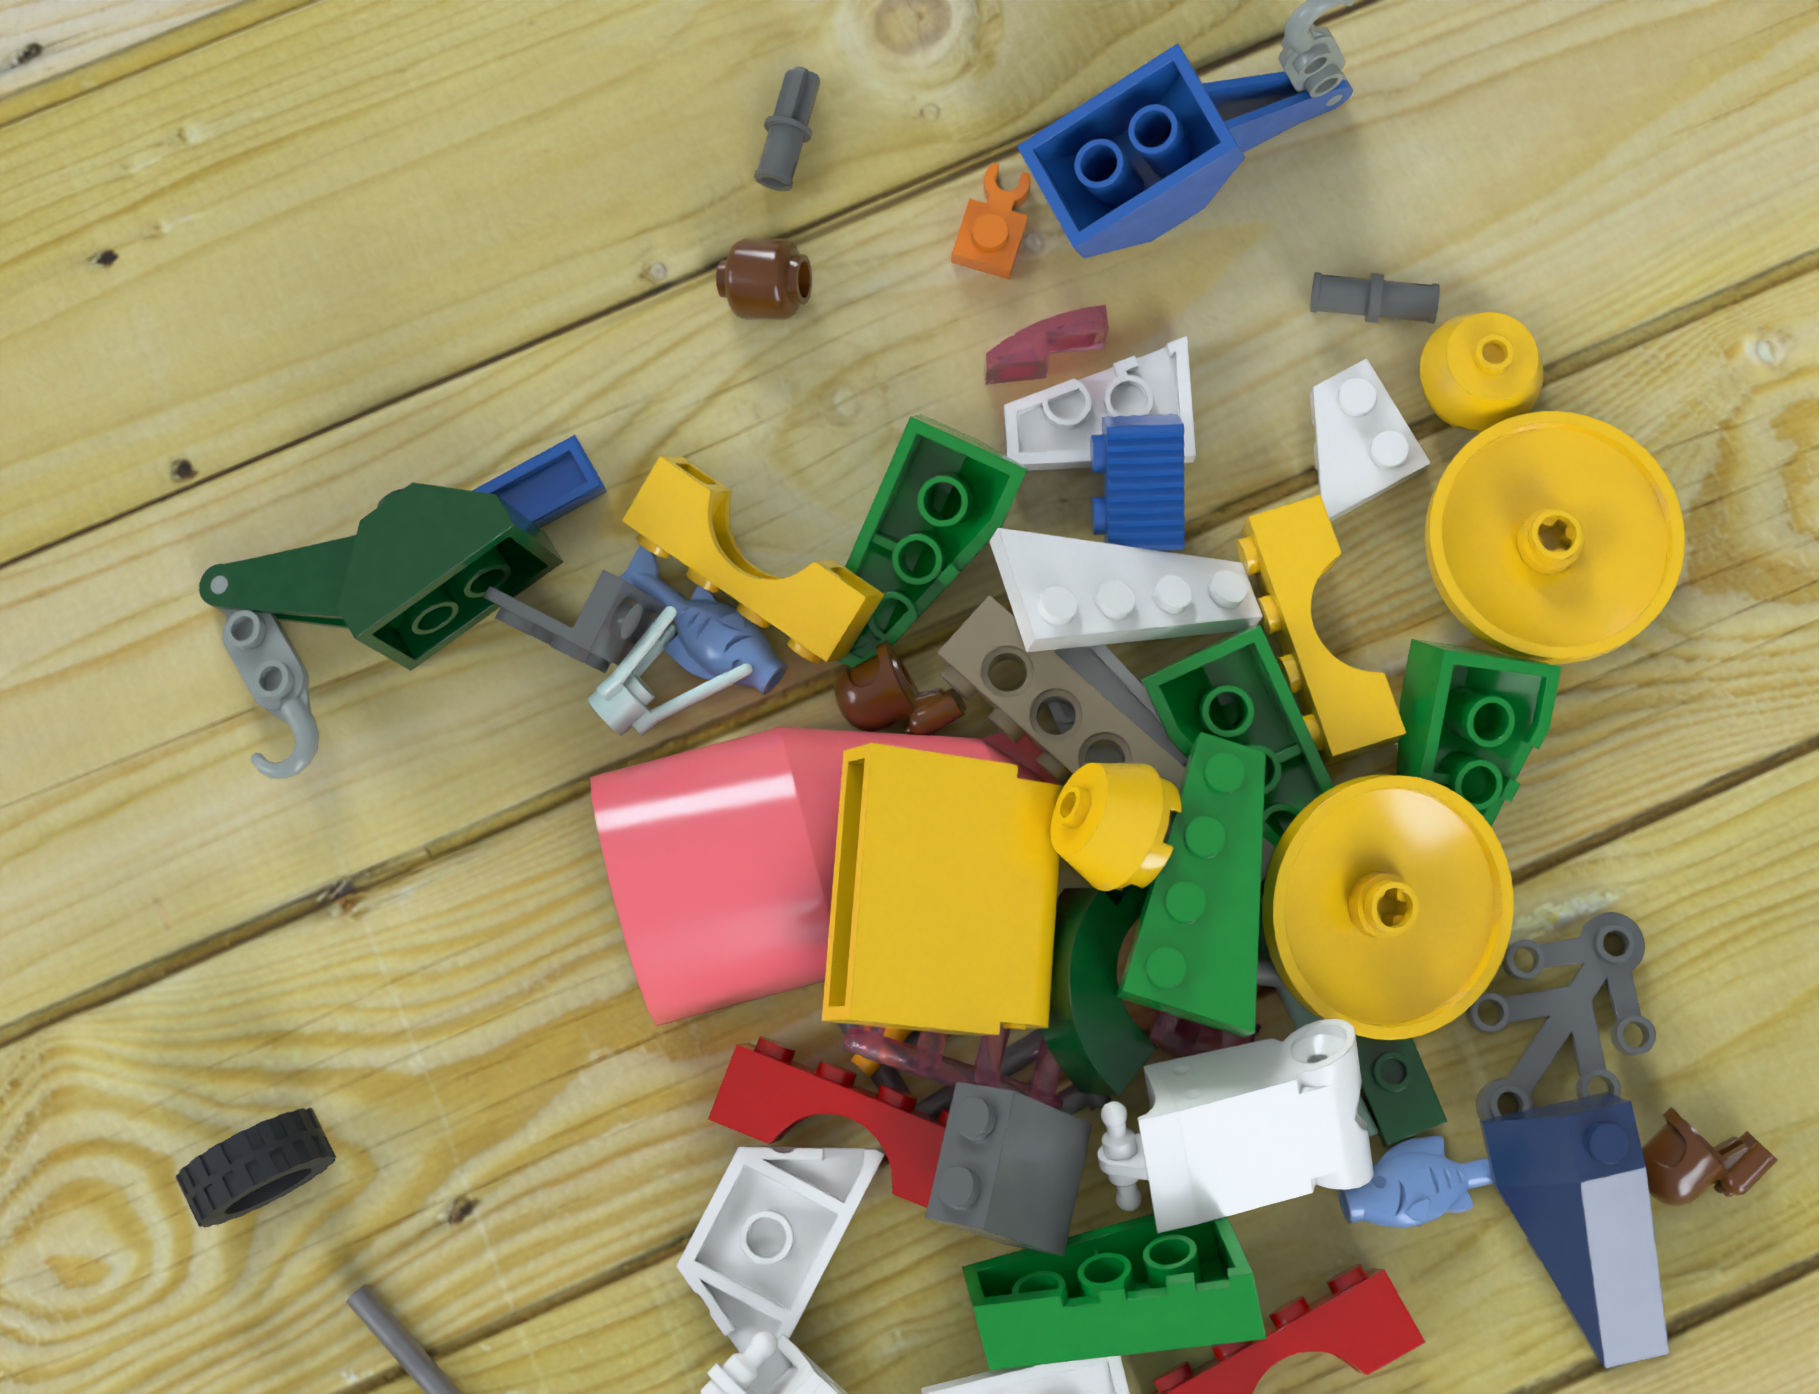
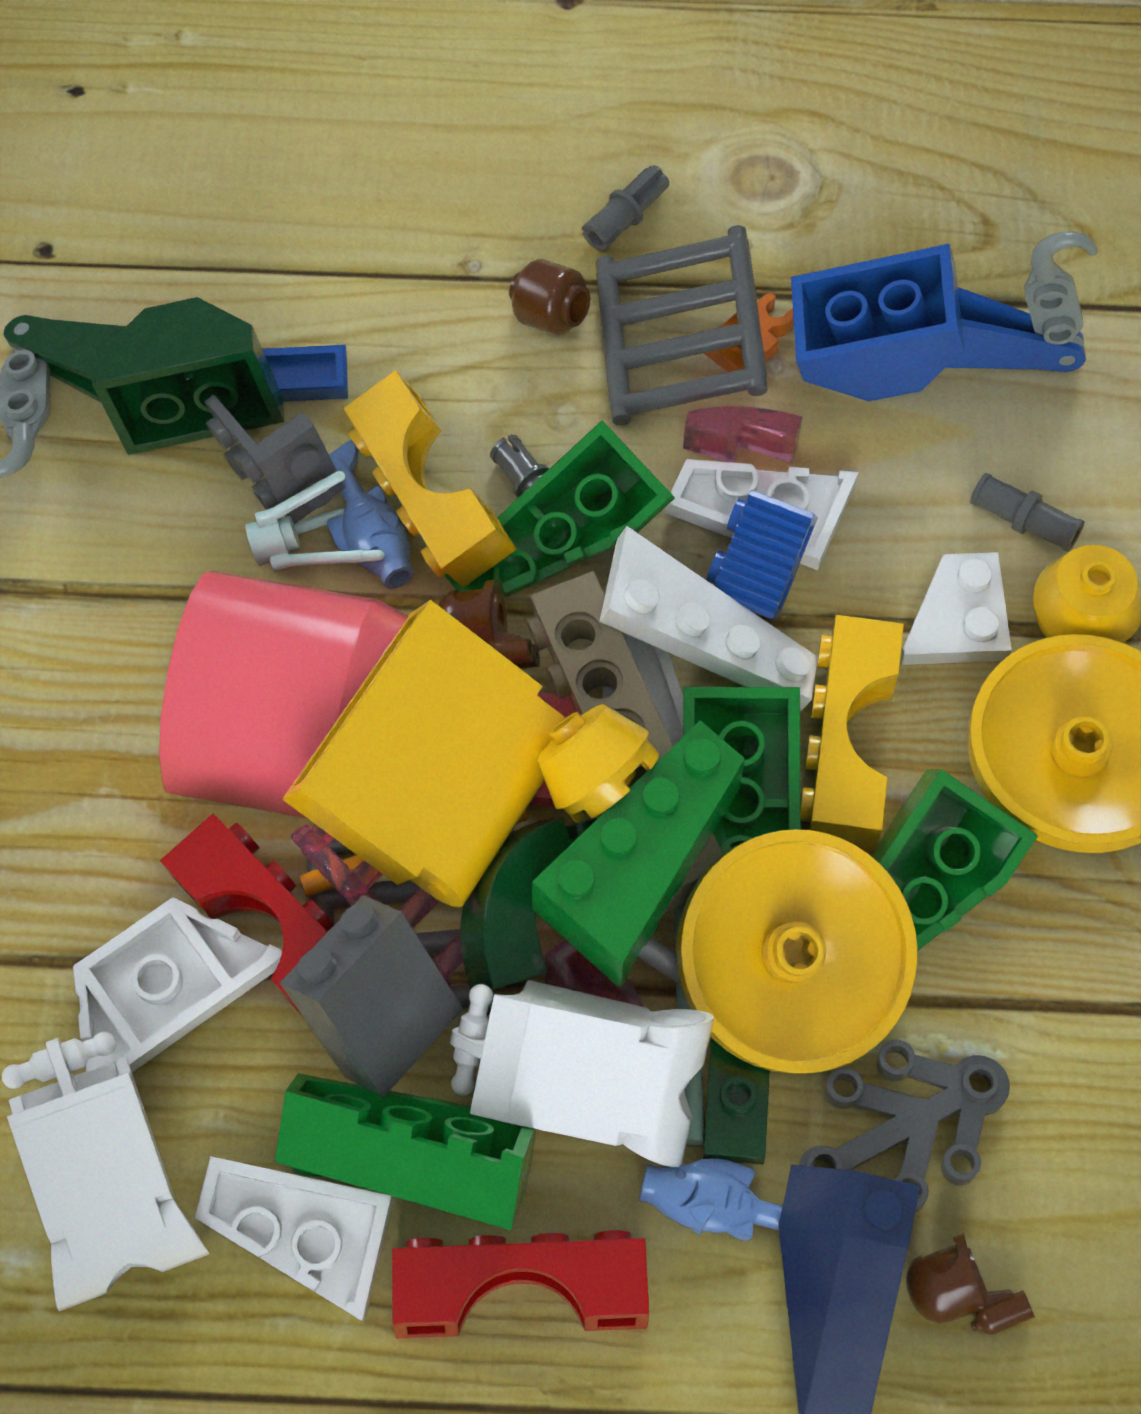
camera: 25 degrees right, 15 degrees down
(836, 493) = (517, 463): none -> dark grey pin
(997, 231) = (745, 333): none -> dark grey bar

